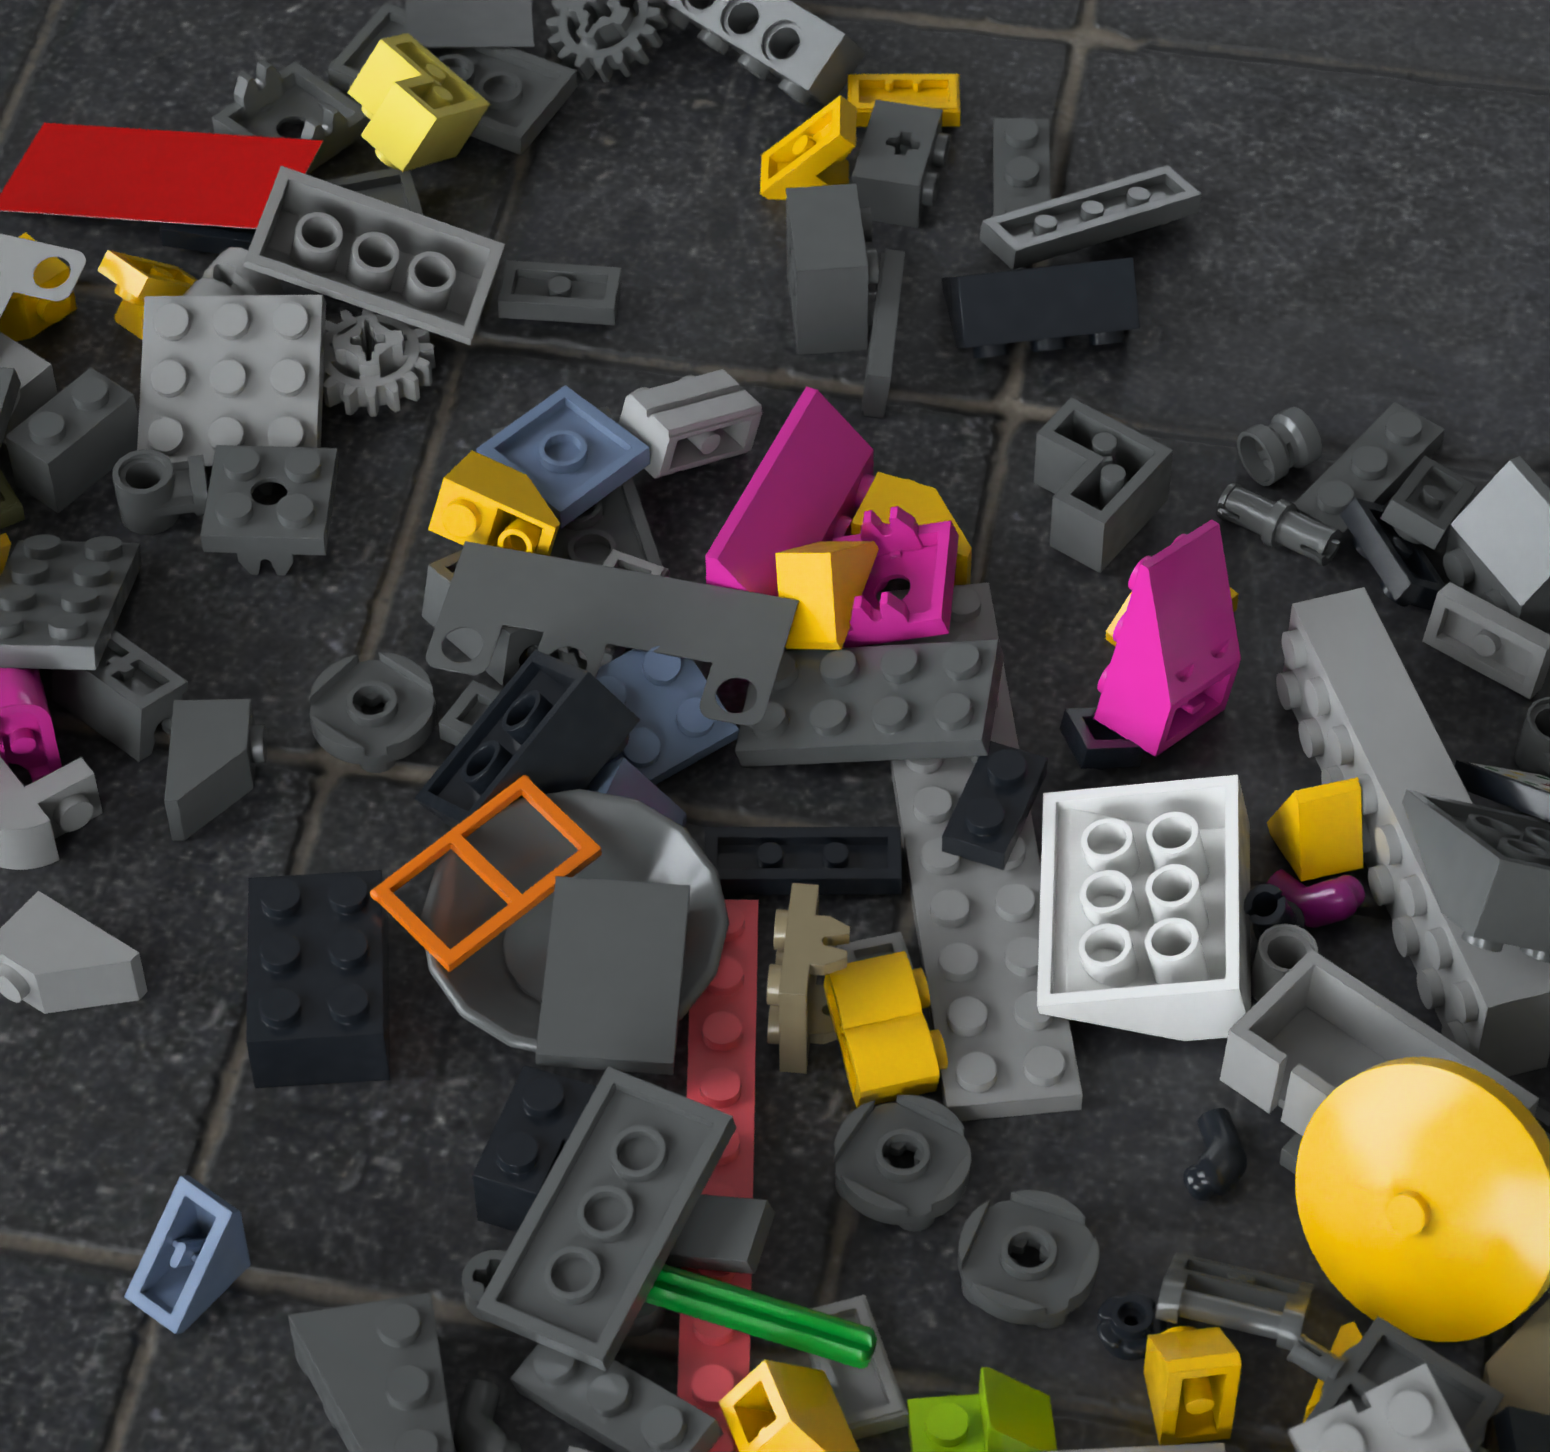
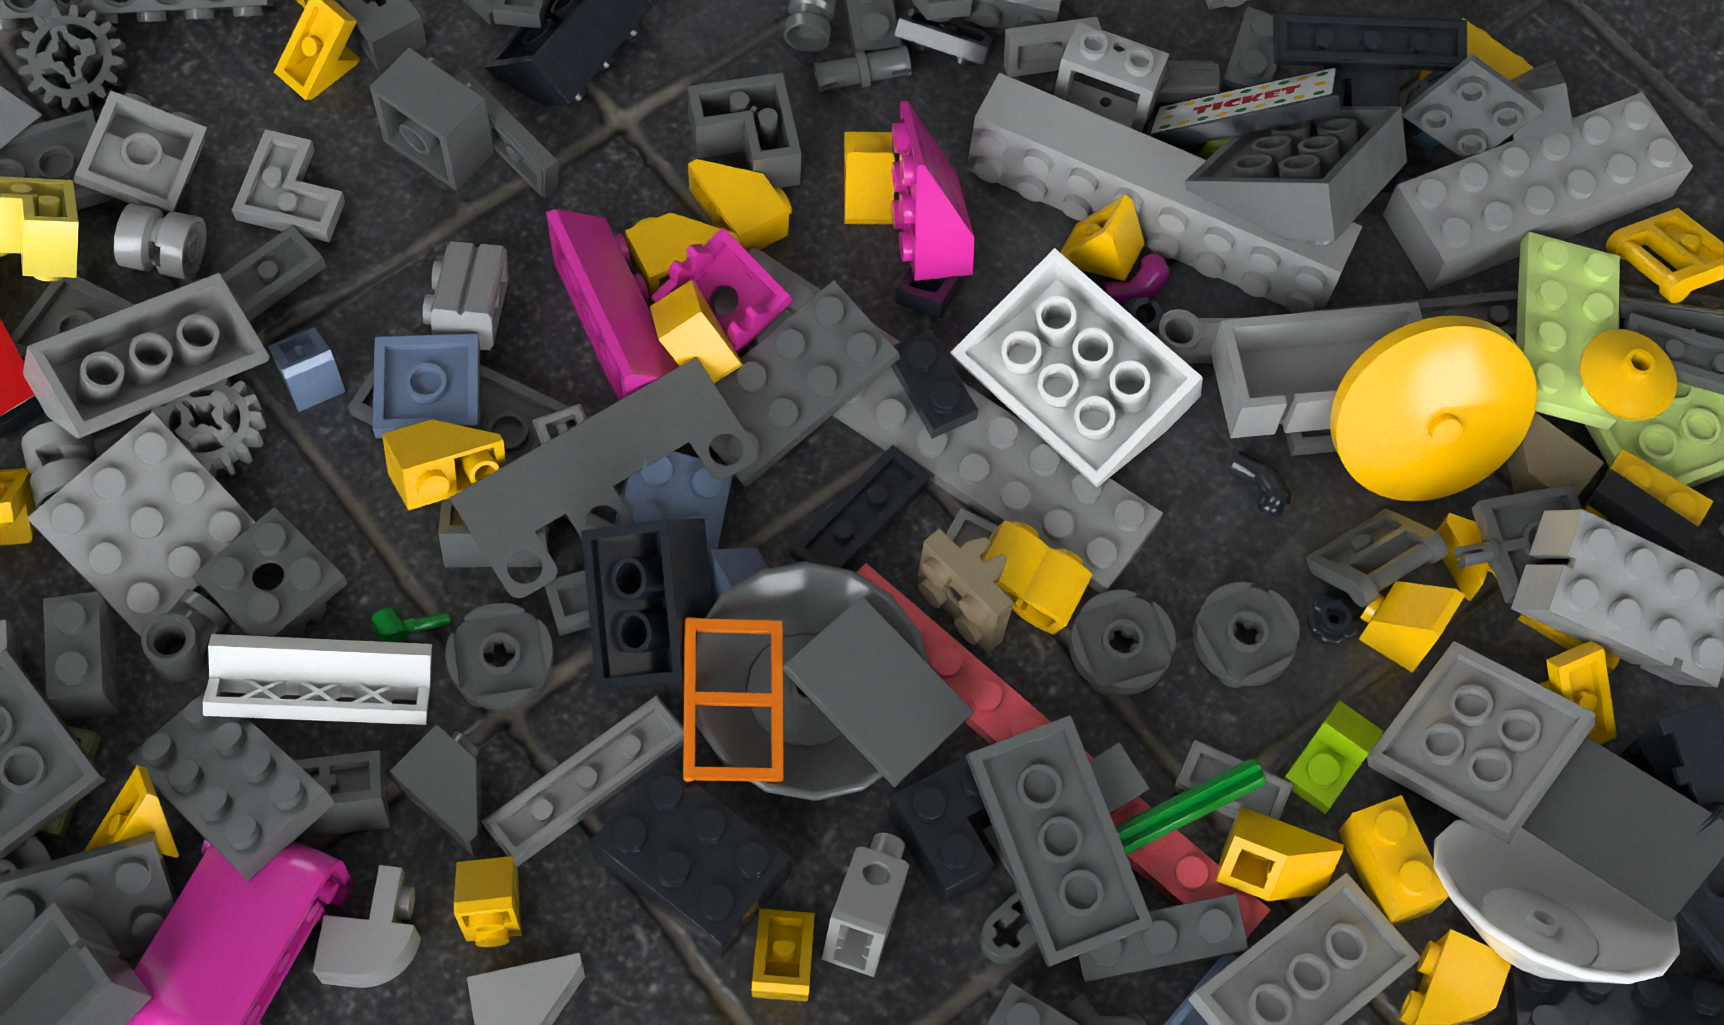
camera: 55 degrees left, 15 degrees up
(127, 860) = (488, 900): none -> yellow slope
(214, 593) = (320, 674): none -> white fence
(248, 847) = (585, 781): none -> light grey tile
(285, 1110) = (783, 955): none -> yellow slope
(321, 623) = (390, 627): none -> green hand
(402, 1136) = (867, 905): none -> light grey torso
(496, 383) = (307, 368): none -> sand blue slope
(504, 200) = (151, 240): none -> light grey wheel
(568, 125) = (141, 152): none -> light grey plate
(646, 239) = (277, 196): none -> light grey plate
(1017, 543) = (740, 202): none -> yellow slope
(1479, 696) = (1134, 69): none -> light grey window

